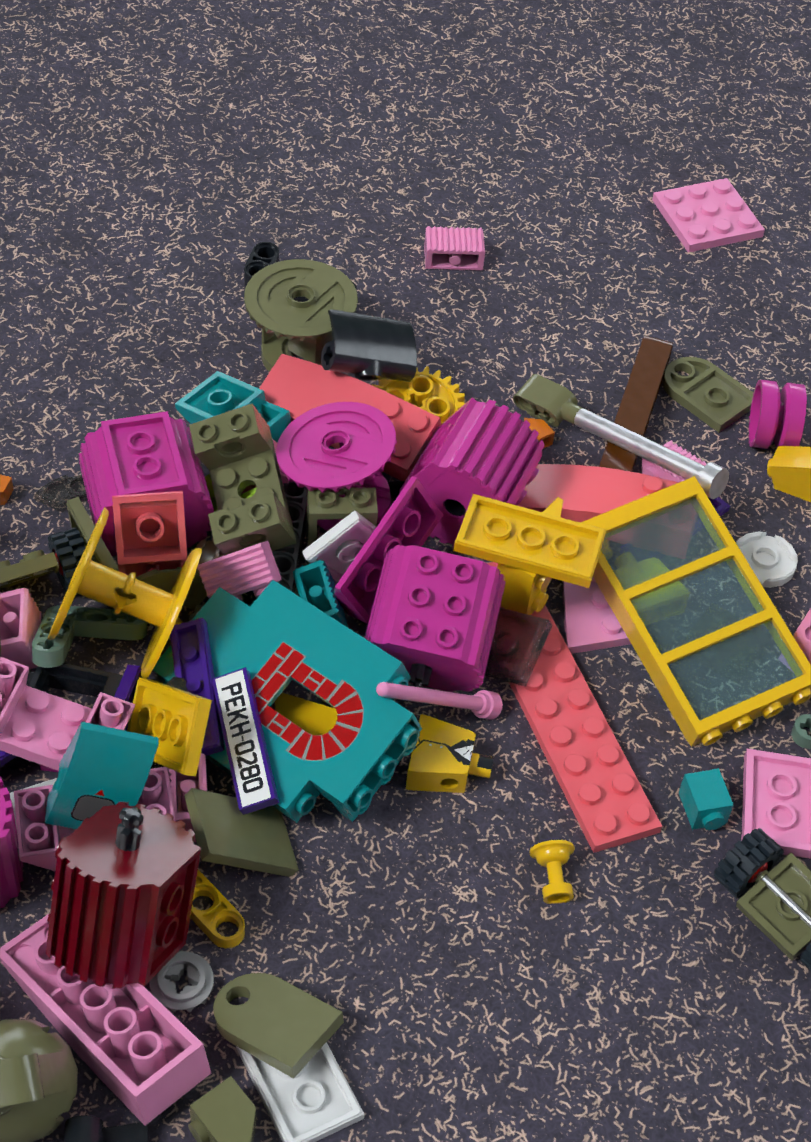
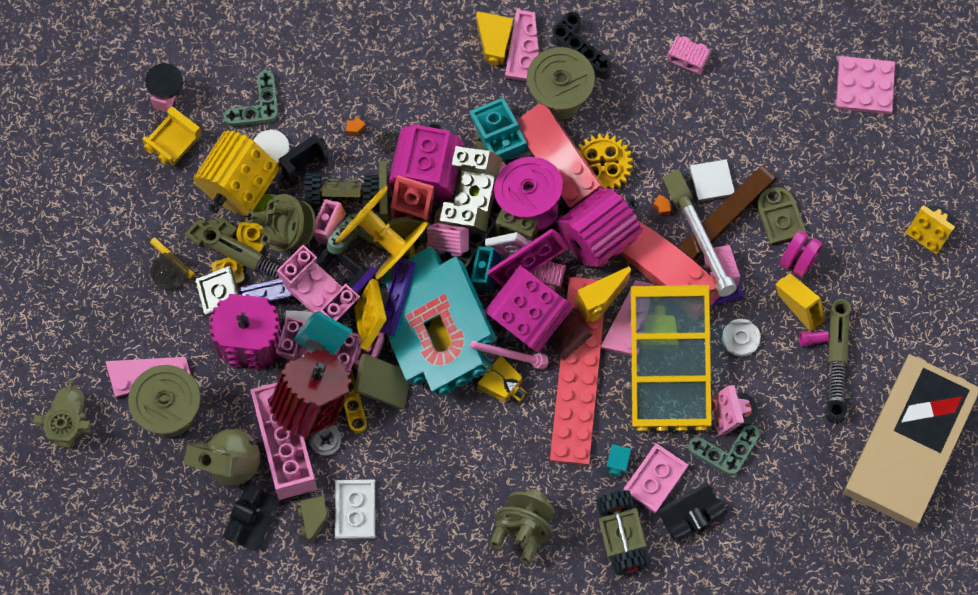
camera: 30 degrees right, 20 degrees up
(157, 309) = (494, 36): none -> yellow slope
(212, 315) = (523, 46): none -> bright pink wing
(244, 741) = (403, 336): tile -> none
(276, 1022) = (357, 479): olive tile -> none
(370, 347) = (586, 123): black panel -> none
(530, 540) = (597, 288): yellow tile -> none
(554, 855) = (524, 457): yellow piece -> none
(587, 379) = (711, 180): none -> white tile
(627, 954) = (526, 521): none -> olive piece

